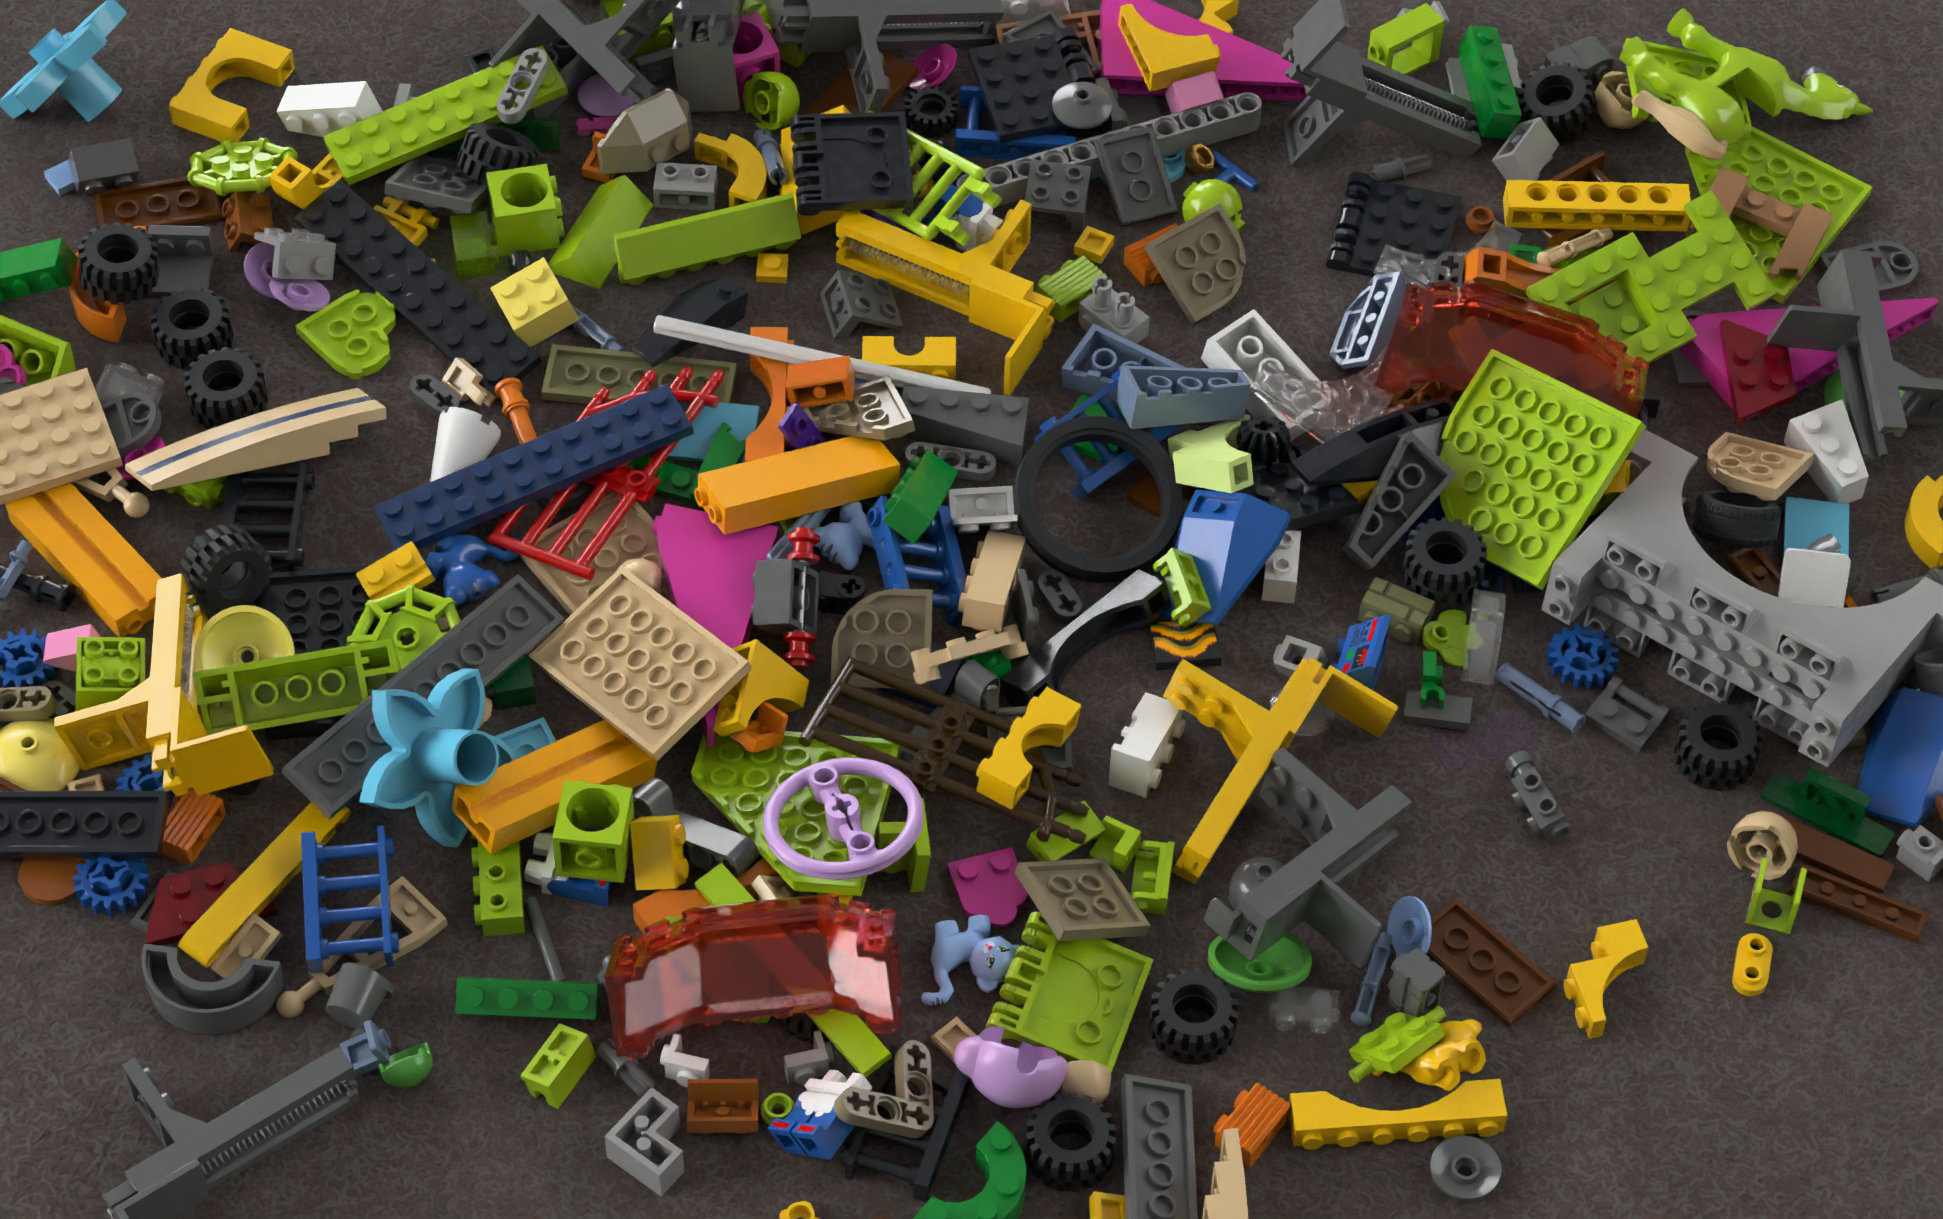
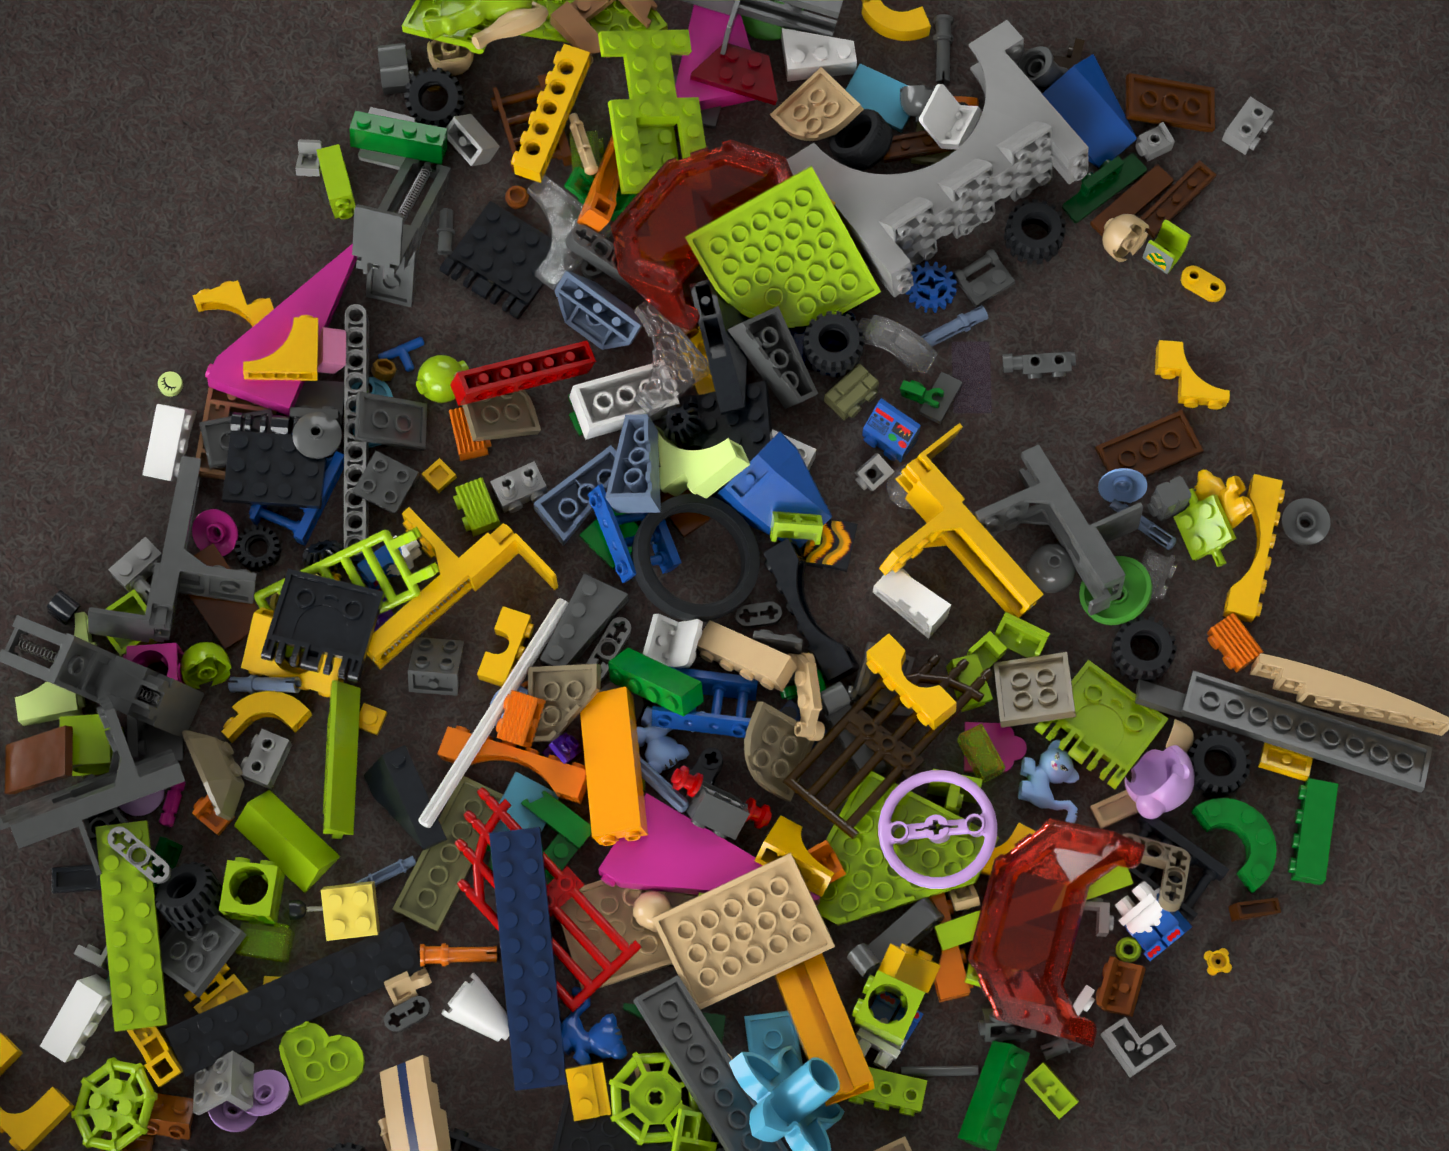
camera: 70 degrees left, 20 degrees up
(970, 860) = (981, 753): none -> clear neon green brick
(1134, 1048) = (1159, 698): none -> dark grey tile
(1249, 265) = (522, 373): none -> red brick
(1452, 639) = (884, 362): lime plate -> none

